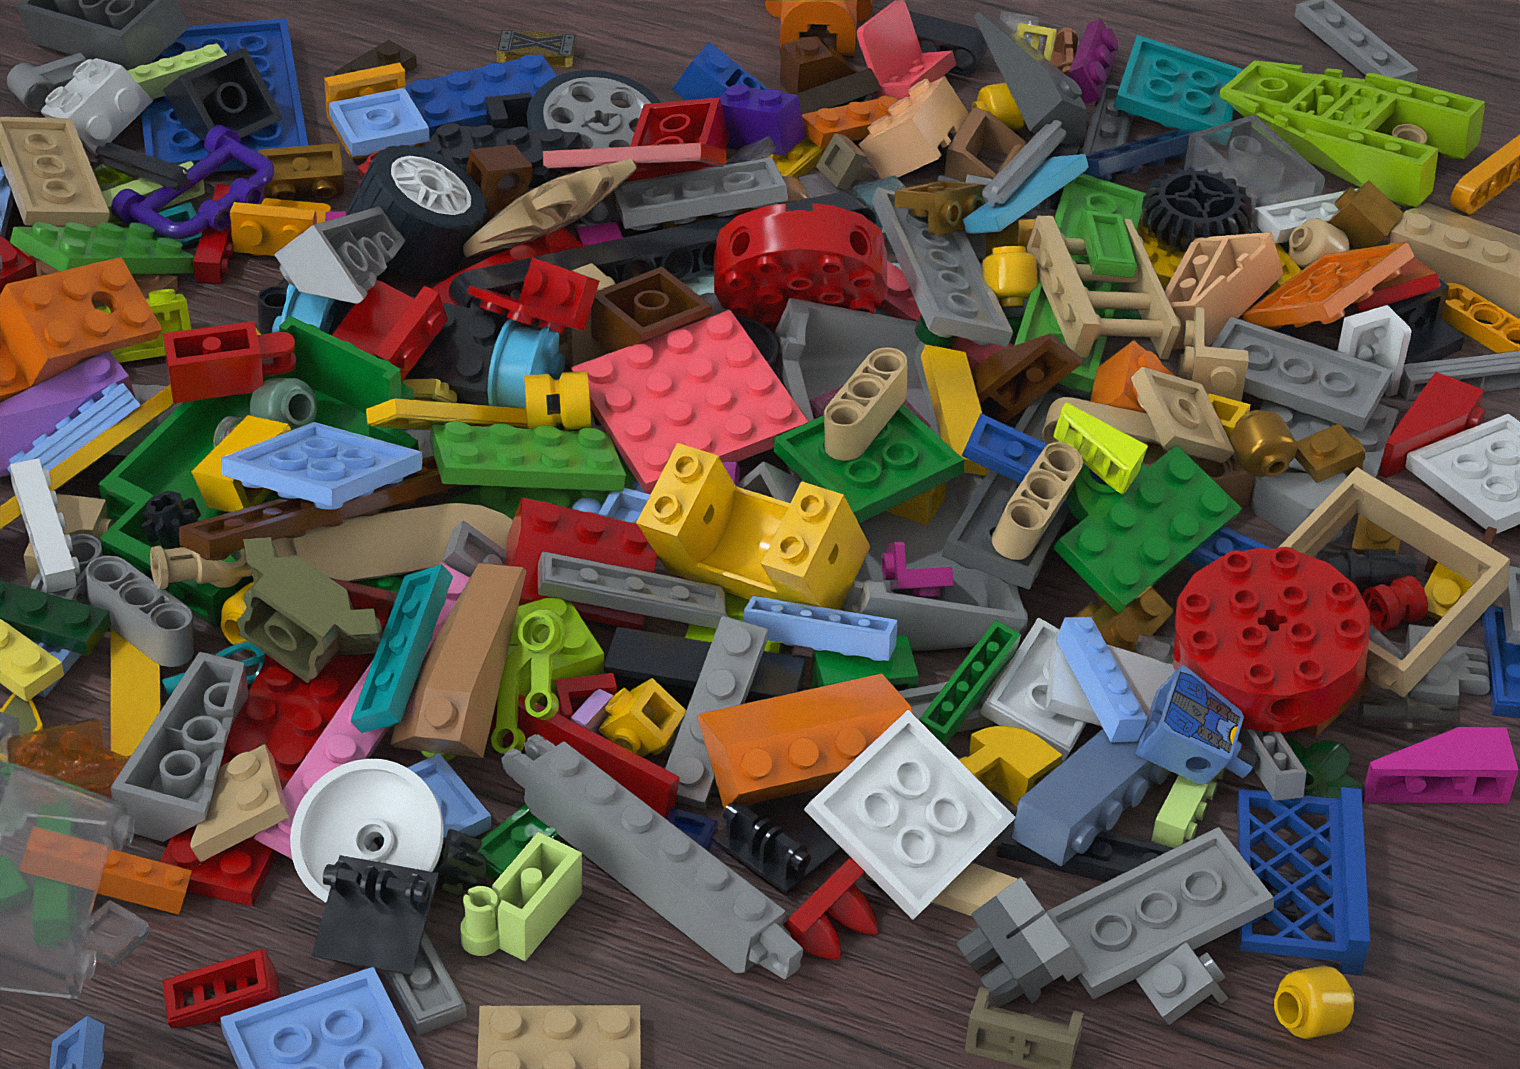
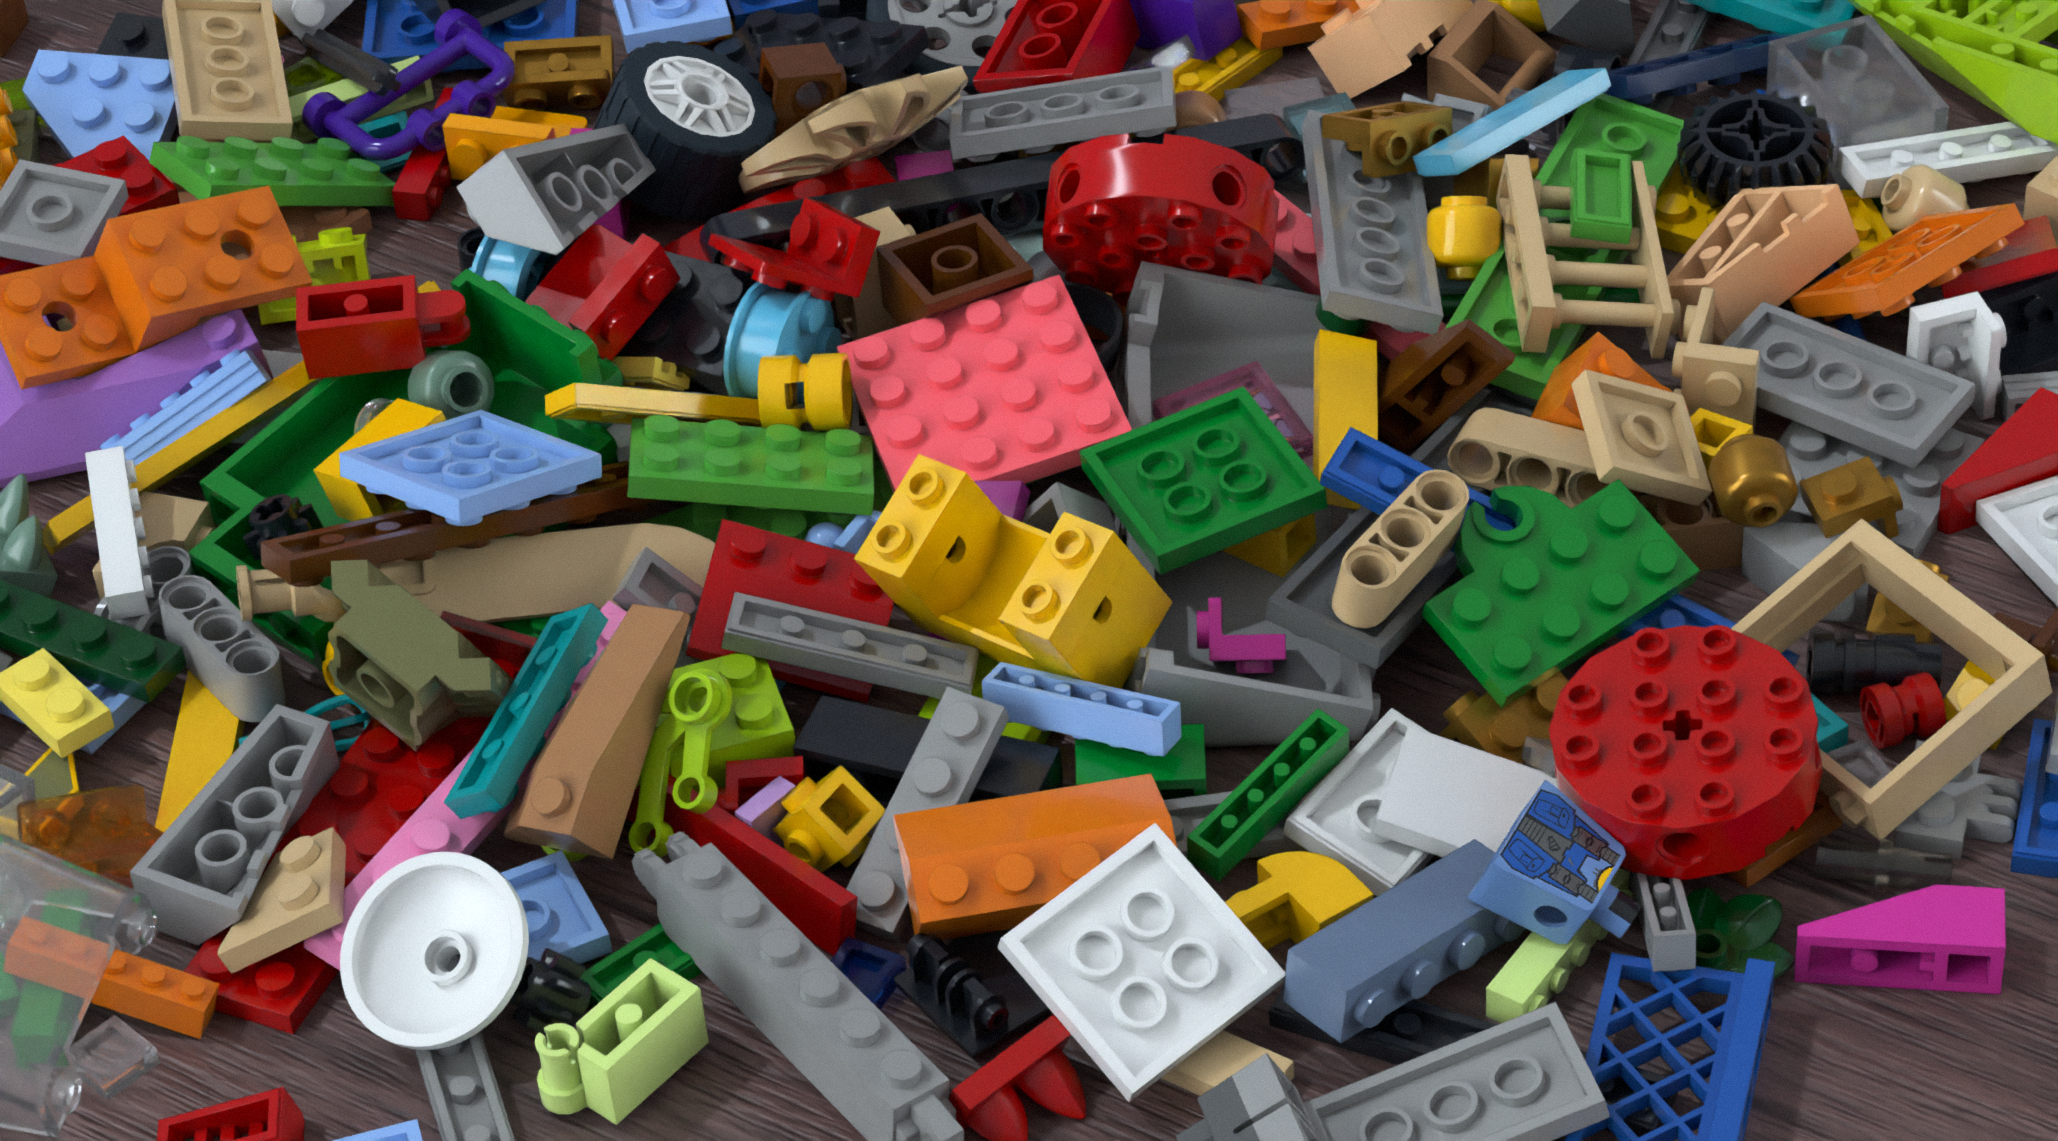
camera: 15 degrees right, 0 degrees up
(374, 914) = (426, 1051): black hinge -> none
(644, 157) = (985, 63): tile -> none
(843, 162) = (1284, 72): dark tan tile -> none
(865, 404) = (1203, 408): tan beam -> none
(1024, 164) = (1518, 79): light grey axle -> none
(1101, 679) = (1444, 795): light blue piece -> none
(1102, 447) = (1501, 480): neon yellow slope -> none
(1365, 215) = (1995, 161): pearl gold brick -> none

